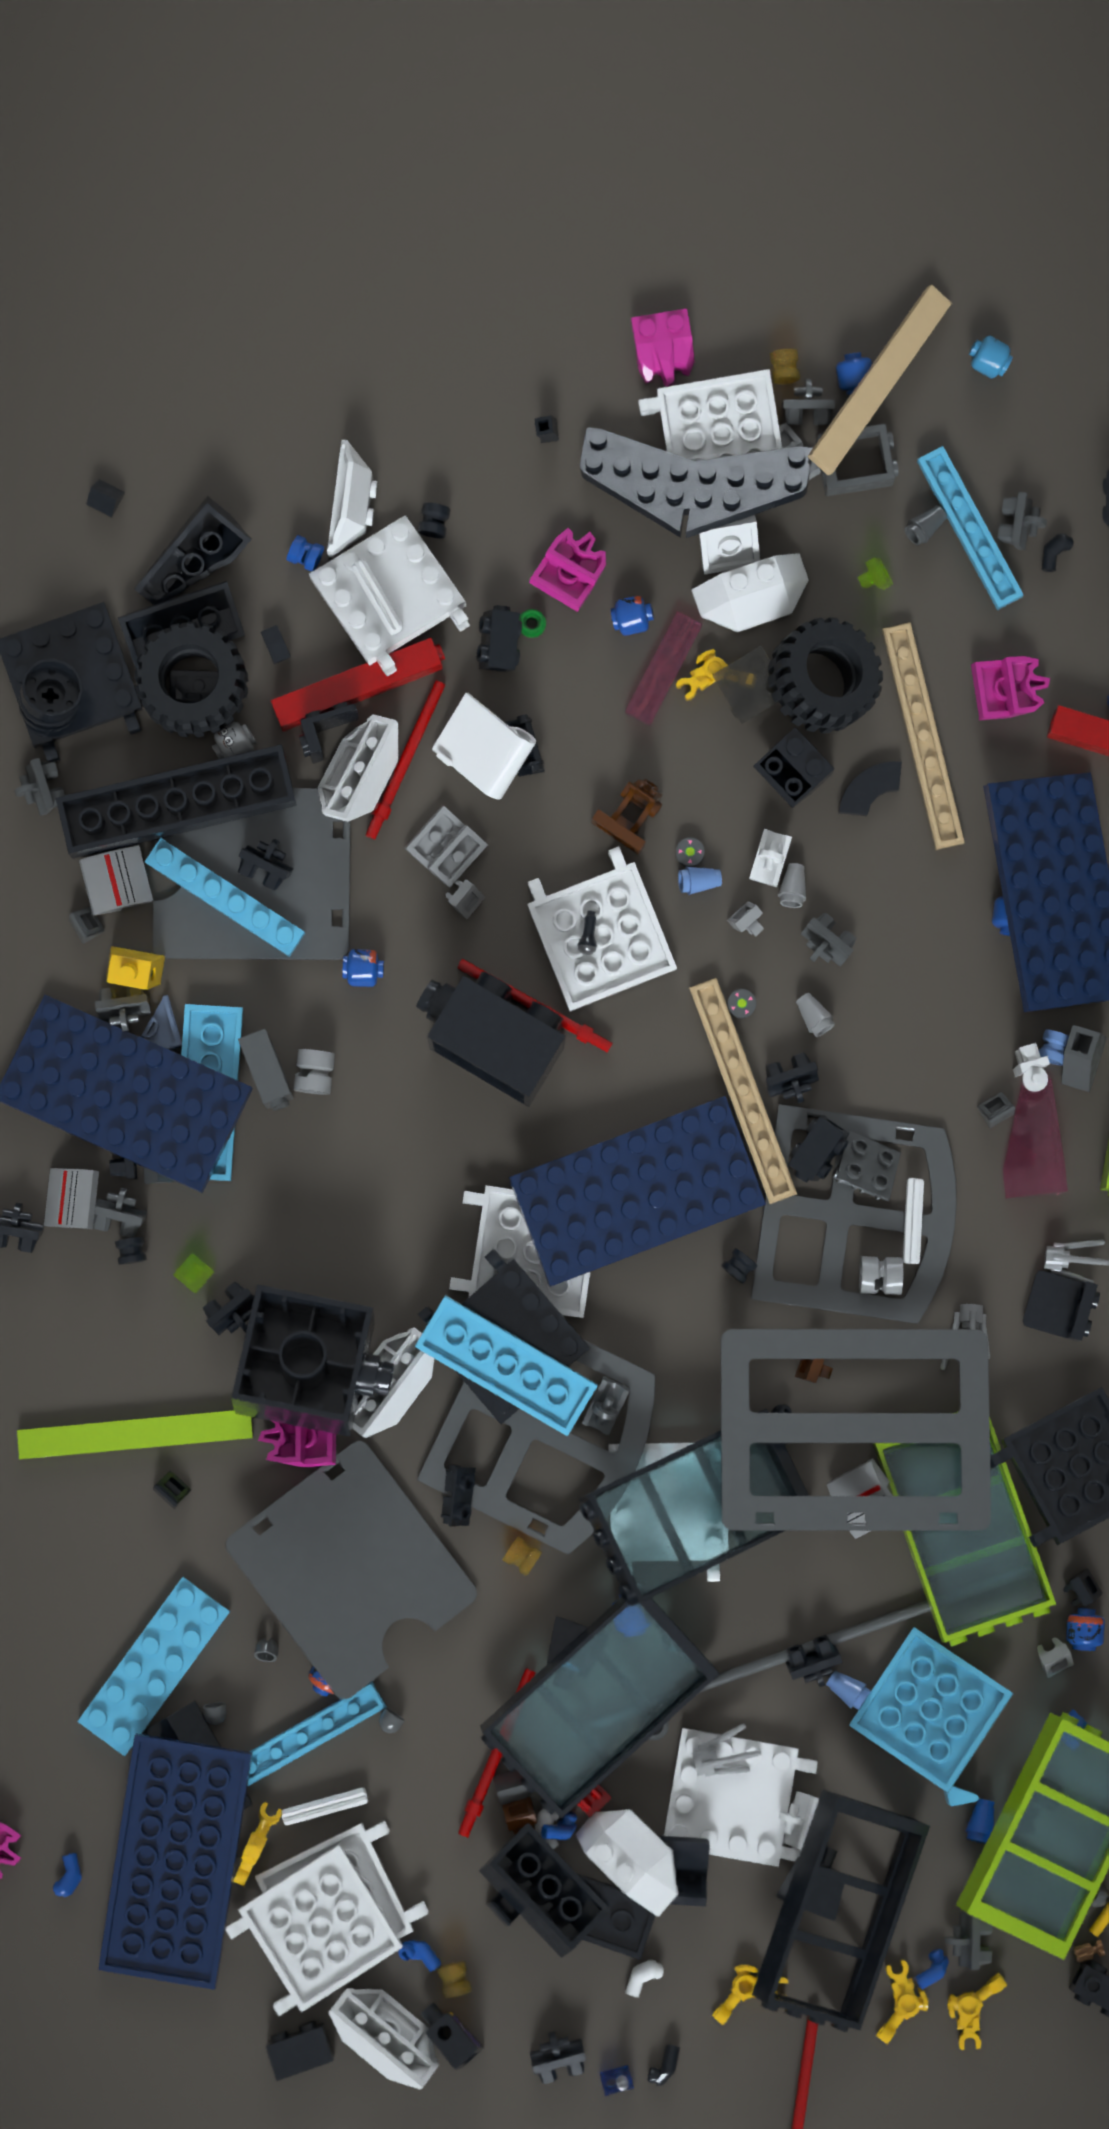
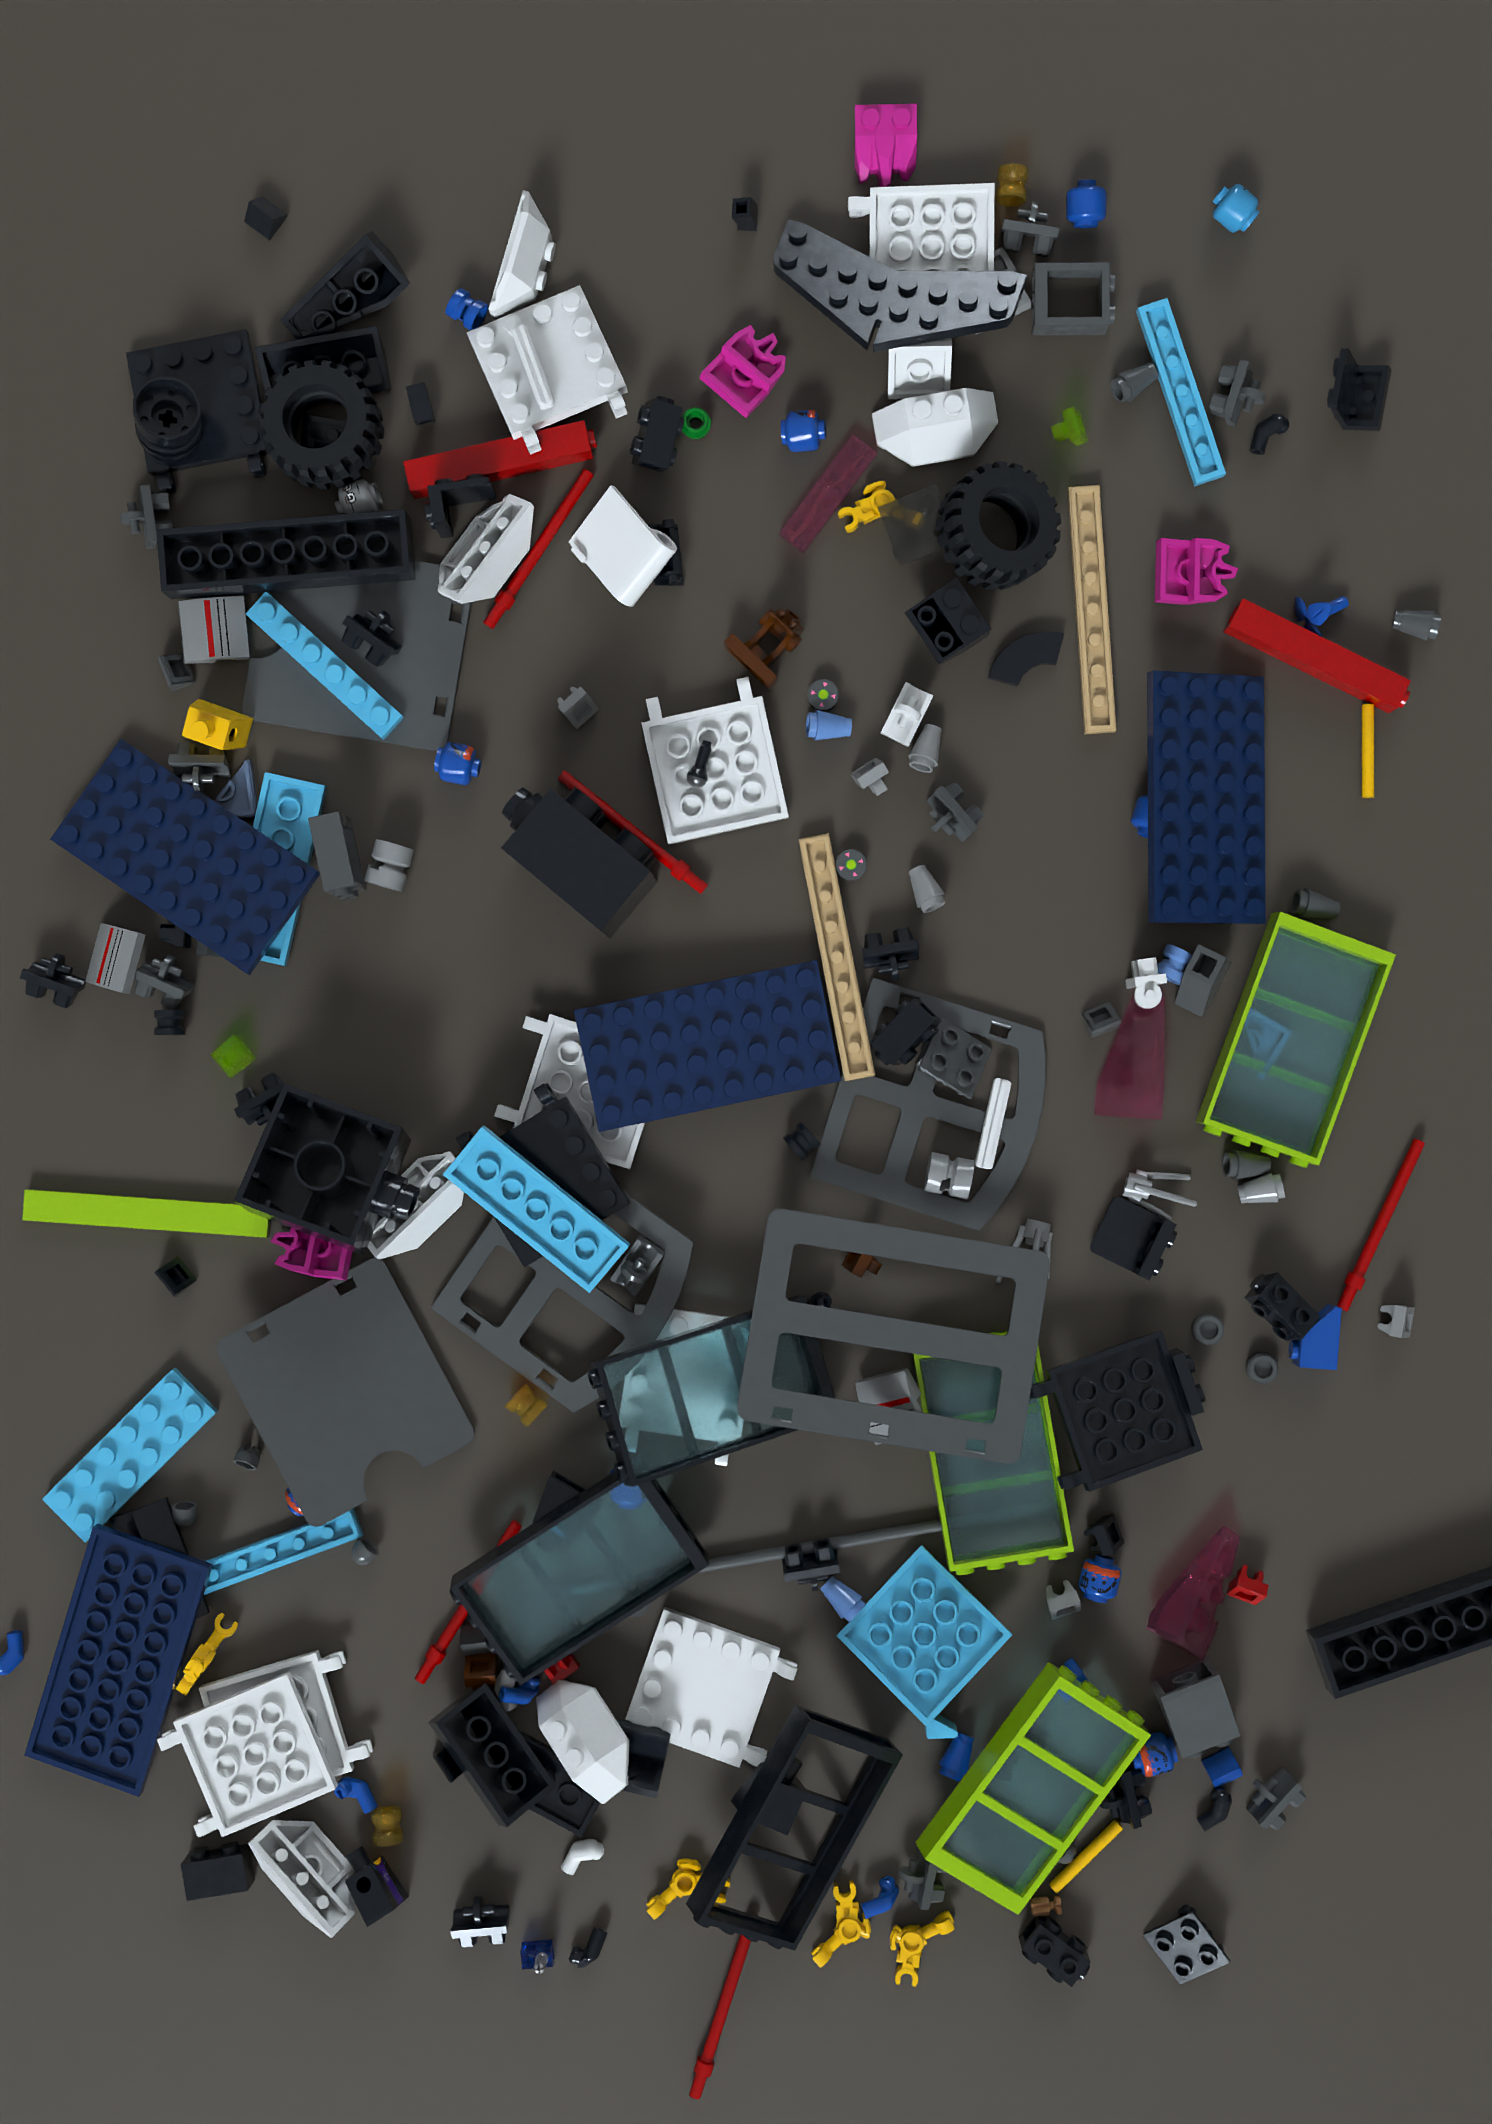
camera: 15 degrees right, 5 degrees up
(324, 1806) = (282, 1627): white axle -> none
(434, 520) = (609, 294): black wheel -> none
(446, 846) = (566, 648): light grey slope -> none
(457, 1509) = (467, 1343): black hinge -> none
(708, 1762) = (682, 1650): light grey plant -> none
(798, 1819) = (768, 1724): white hips -> none
(879, 380) = (1111, 213): tan tile -> none

